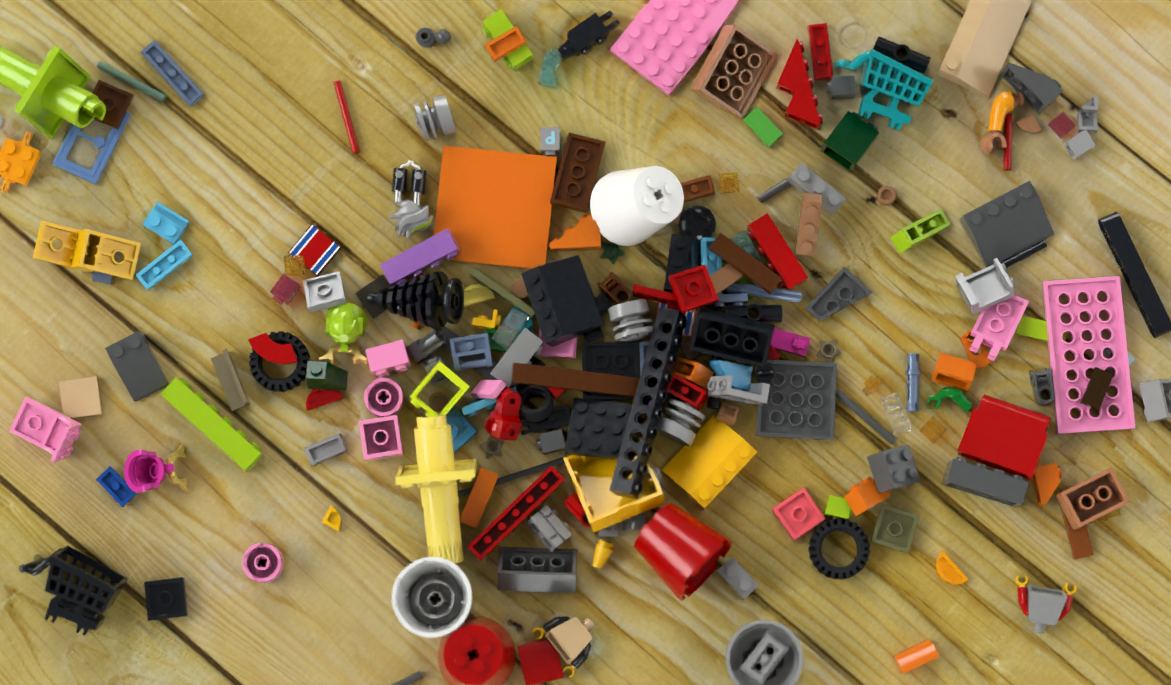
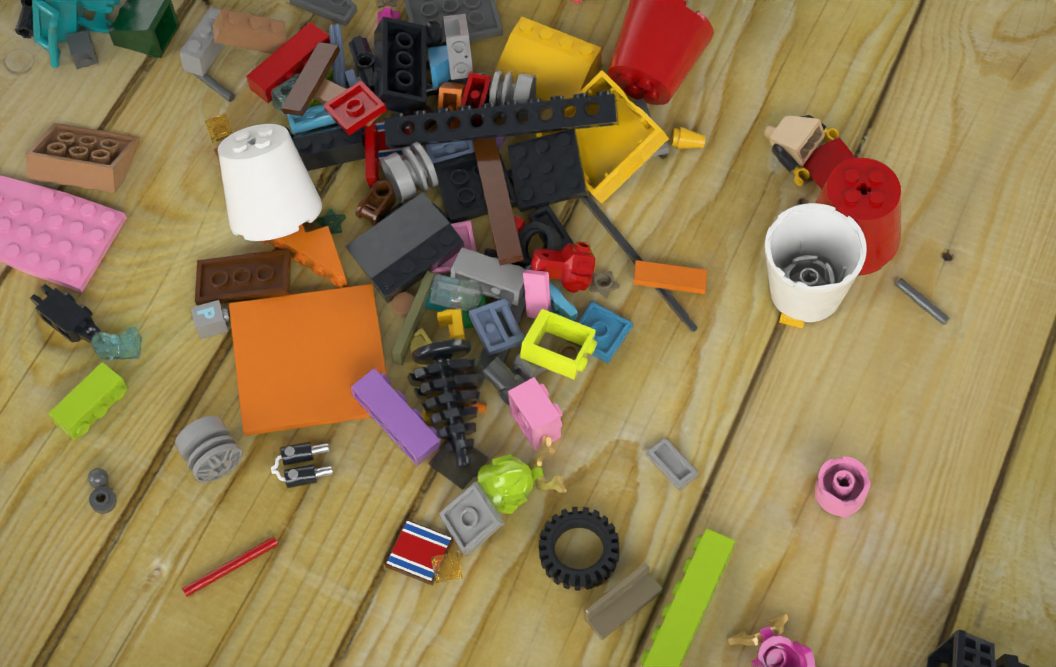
camera: 105 degrees left, 20 degrees down
(166, 599) = (934, 594): black plate -> none
(273, 351) = (569, 553): red tile -> none
(285, 290) = (482, 569): clear pink brick -> none
(322, 397) = (606, 487): red tile -> none
(325, 376) = (581, 485): dark green slope -> none
(332, 519) = (754, 430): yellow tile -> none
(376, 390) = (586, 408): bright pink brick -> none
(381, 438) = (636, 396): bright pink brick -> none
(411, 218) = (348, 441): light grey hair -> none
(437, 479) = (668, 308): light yellow piece -> none
(505, 44) = (94, 393): orange tile -> none
(516, 513) = (675, 229): red brick -> none
(537, 570) = (730, 194): dark grey slope -> none
(550, 528) = (678, 193): light grey brick -> none
(551, 442) = (577, 219): dark grey brick -> none
(575, 507) = (643, 177): red piece -> none
(728, 413) = (487, 62): medium nougat tile -> none
(762, 127) = (144, 115): bright green tile -> none
(795, 82) = (83, 94): red slope -> none
(820, 52) = (43, 84): red tile -> none

